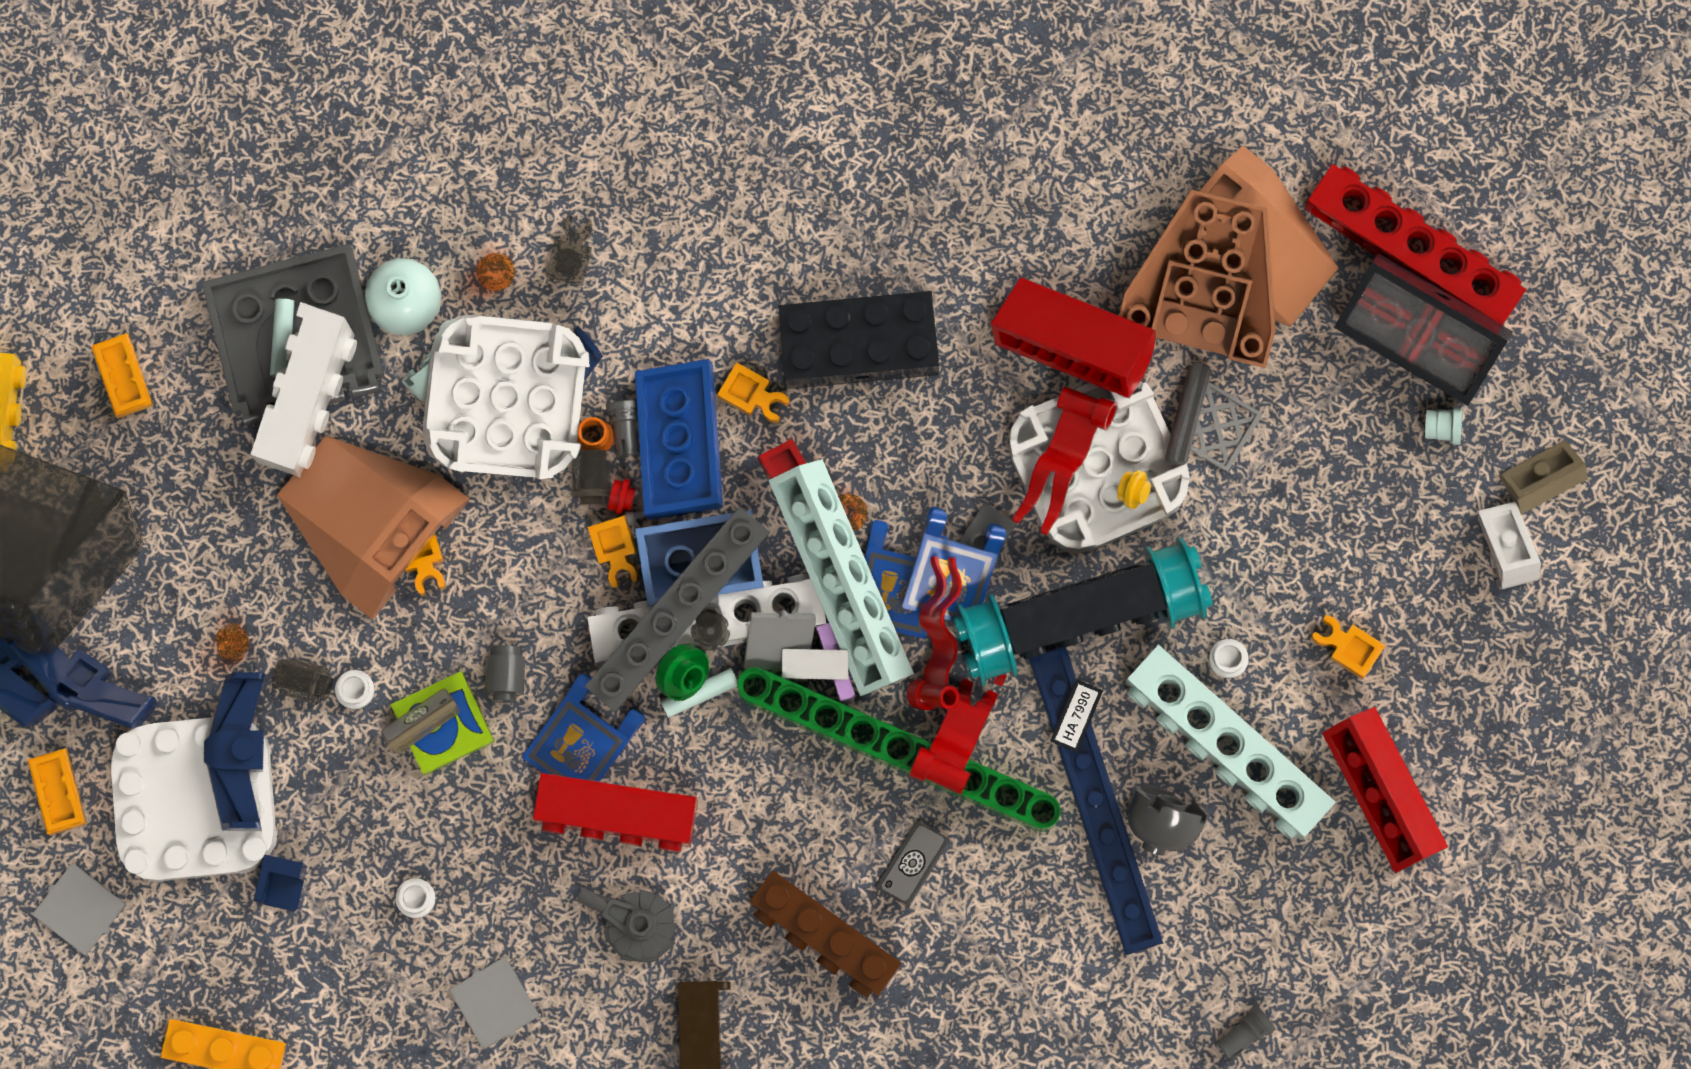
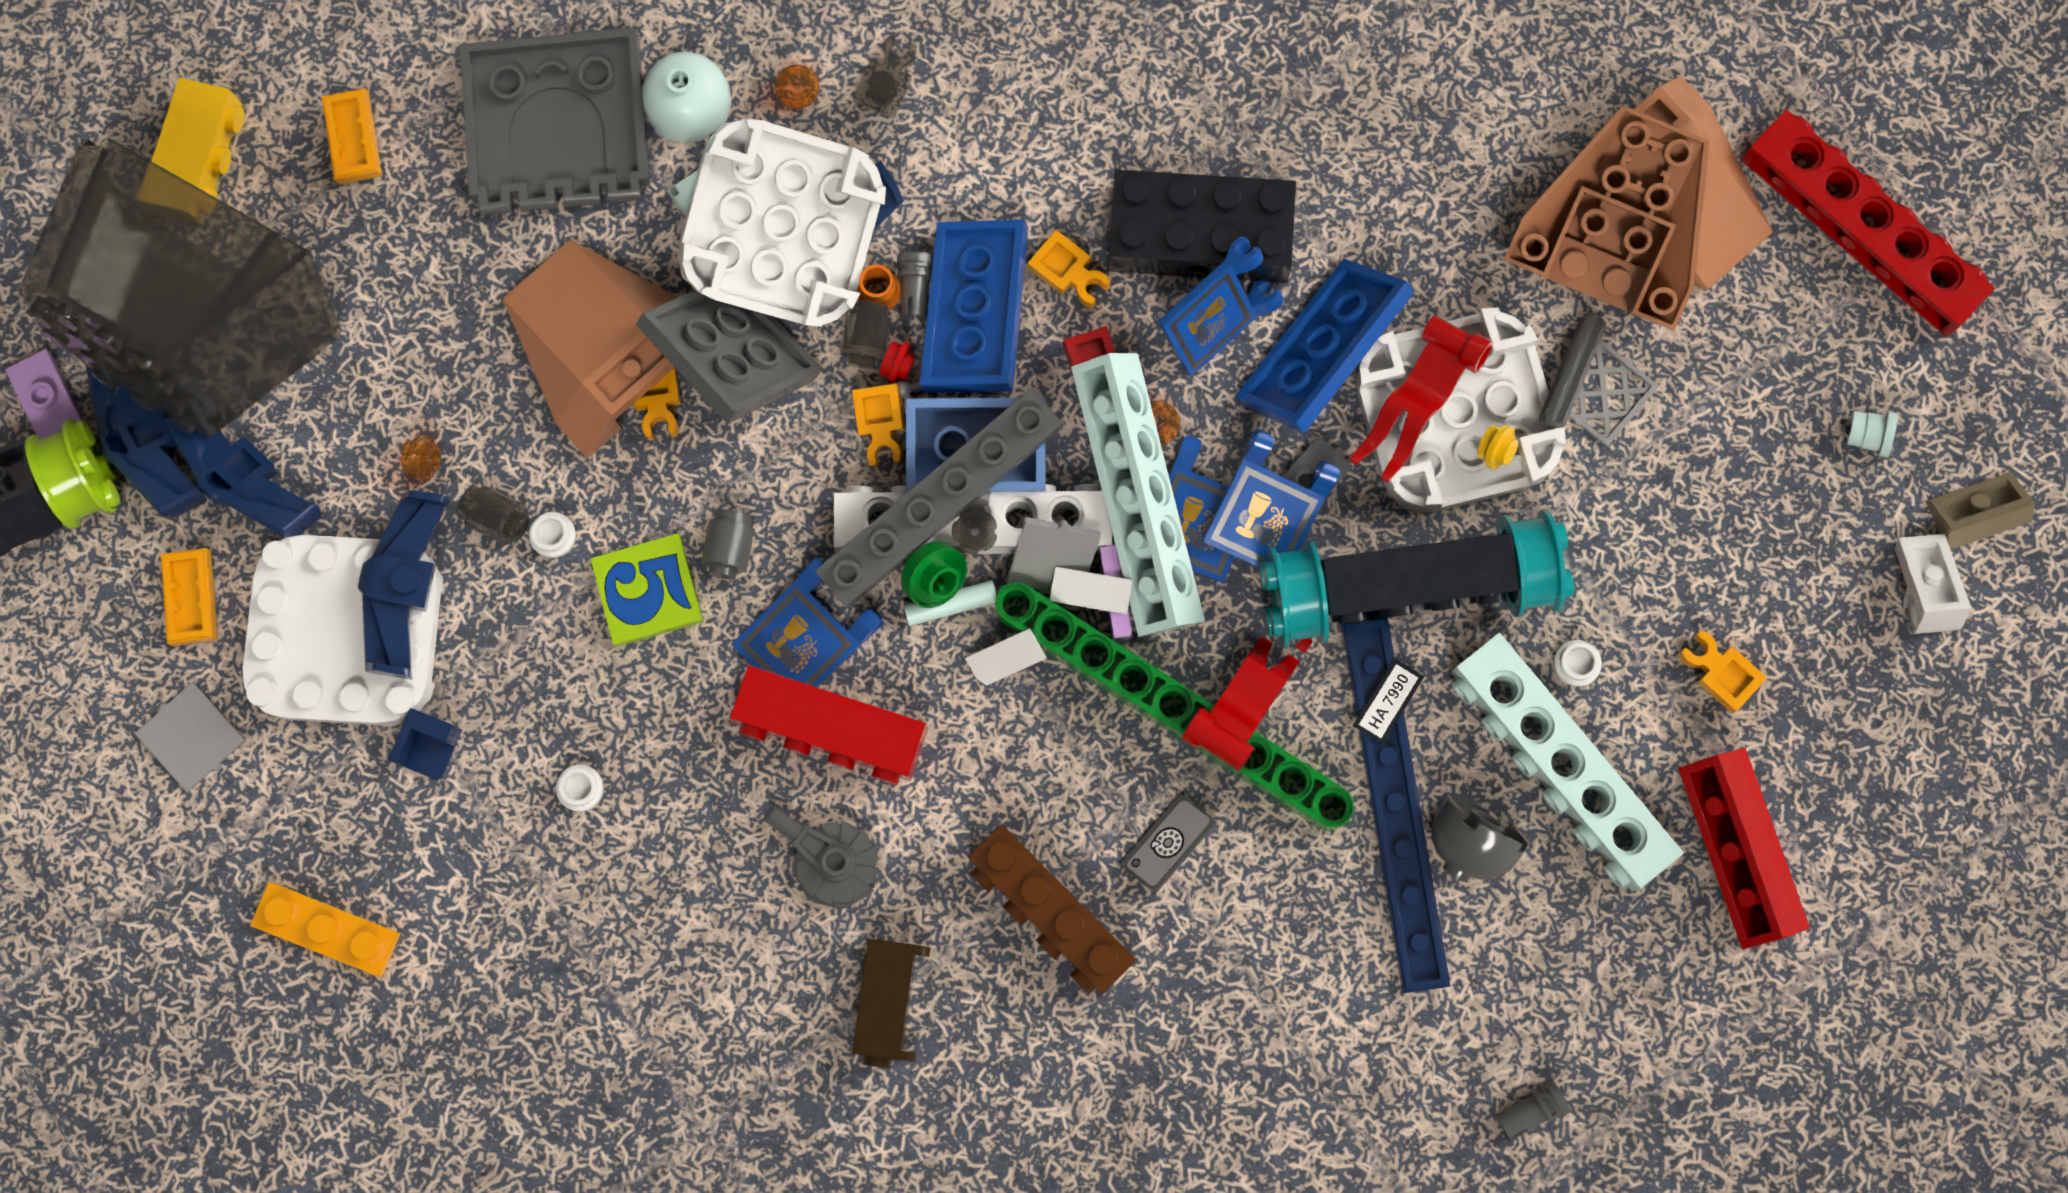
camera: 10 degrees right, 0 degrees up
(281, 330) = (539, 120): light aqua piece -> none
(304, 390) = (551, 179): white wedge -> none
(420, 721) = (620, 584): dark tan slope -> none
(480, 513) = (728, 352): none -> dark grey plate
(494, 1003) = (650, 926): light grey piece -> none
(753, 731) = (1006, 657): none -> white sticker
(883, 409) = (1218, 309): none -> blue flag
(933, 689) = (1225, 641): red flag -> none
(977, 425) = (1324, 344): none -> blue plate
(1074, 337) = (1455, 260): red brick -> none
(1423, 329) = (1868, 316): clear brick -> none

